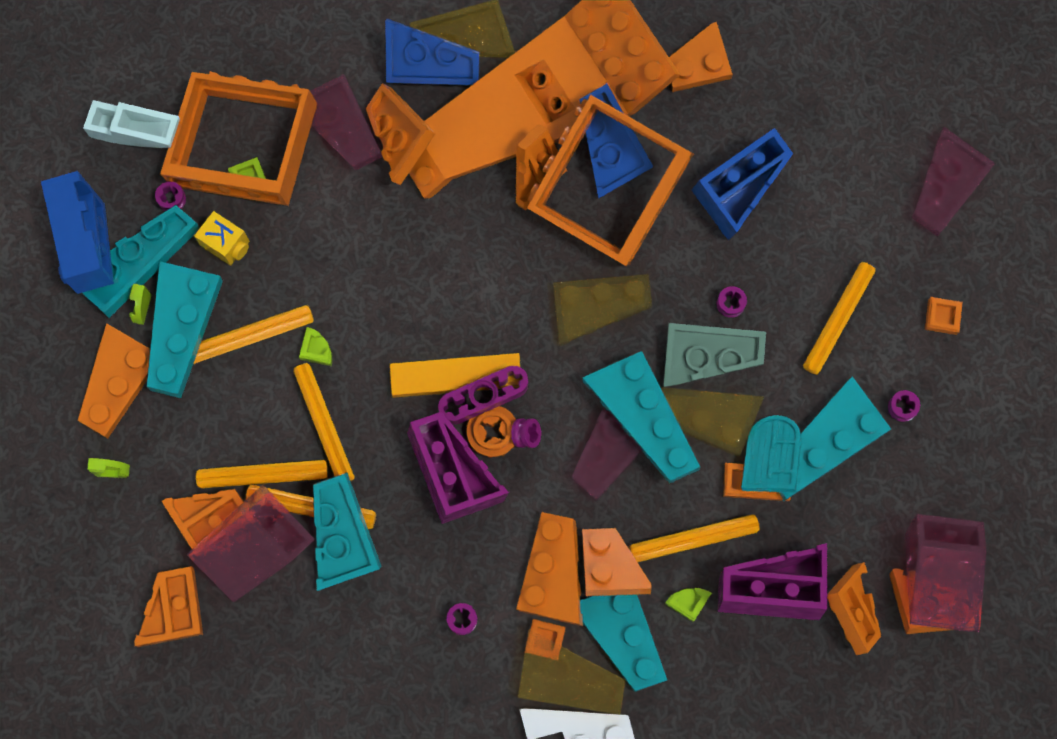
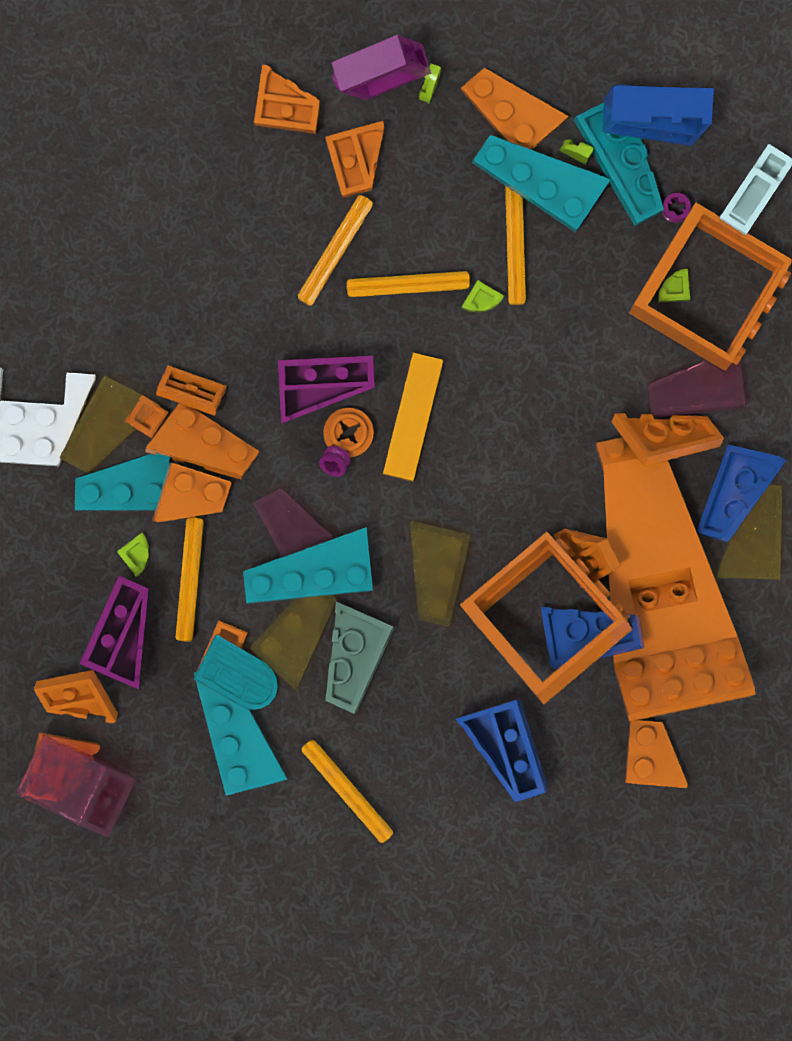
camera: 110 degrees right, 10 degrees up
(106, 515) = (380, 67): none -> magenta window
(222, 238) = (614, 243): yellow brick -> none
(250, 544) = (315, 188): clear pink slope -> none
(261, 474) = (379, 216): light orange axle -> none
(341, 534) = (298, 268): teal wing -> none
(451, 620) = (193, 342): magenta bush -> none
(508, 602) = (189, 393): none -> orange tile
(509, 394) = (388, 409): magenta beam -> none
(730, 312) = (401, 686): magenta bush -> none
(897, 412) = (239, 808): magenta bush -> none
(943, 315) = (316, 890): orange tile -> none
(949, 181) = (444, 951): clear pink wing -> none

